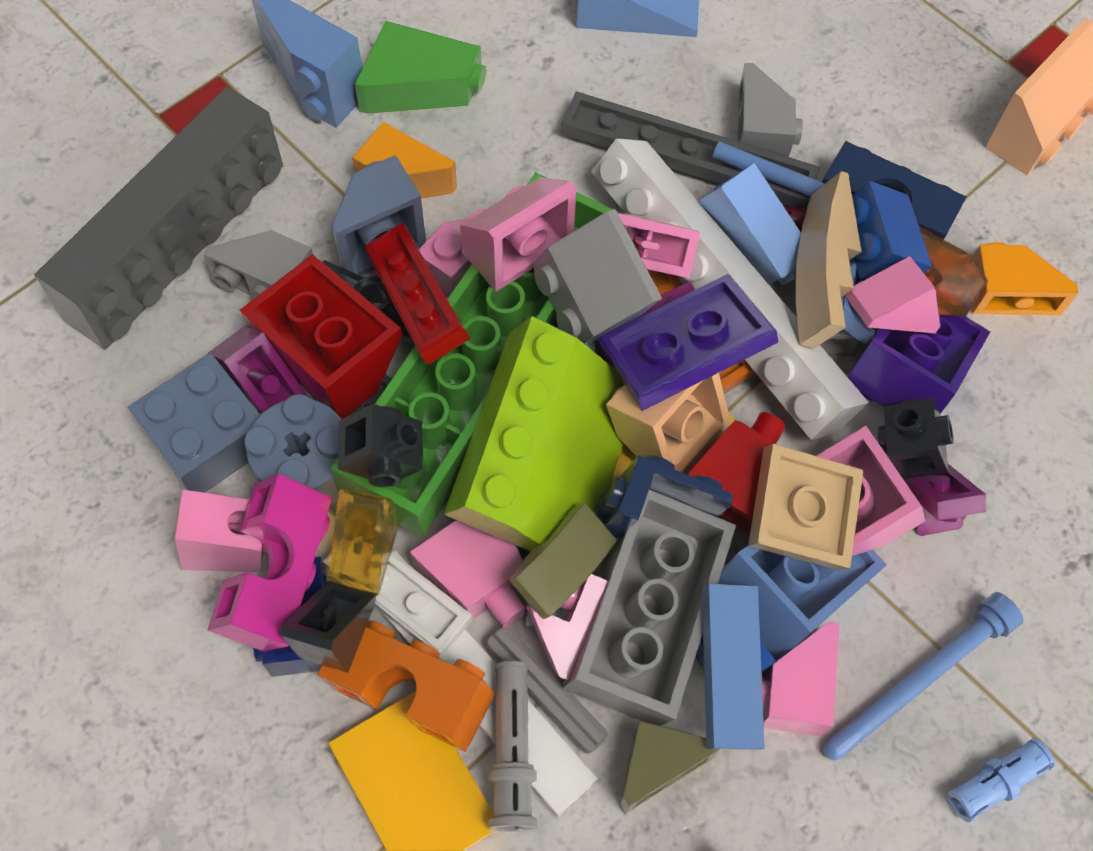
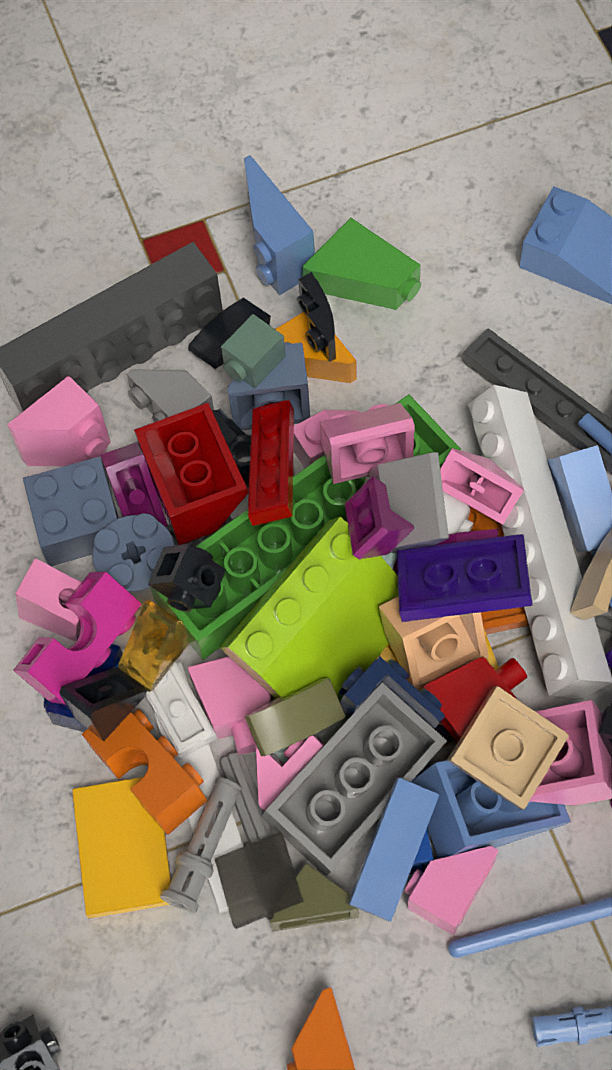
camera: 30 degrees right, 0 degrees up
(149, 336) = (60, 428): none -> bright pink slope
(298, 178) = (210, 339): none -> black slope
(348, 176) = (253, 351): none -> sand green brick
(405, 130) = (319, 316): none -> black slope
(570, 307) = (371, 522): none -> magenta slope
(593, 762) = (258, 880): none -> clear smoke piece

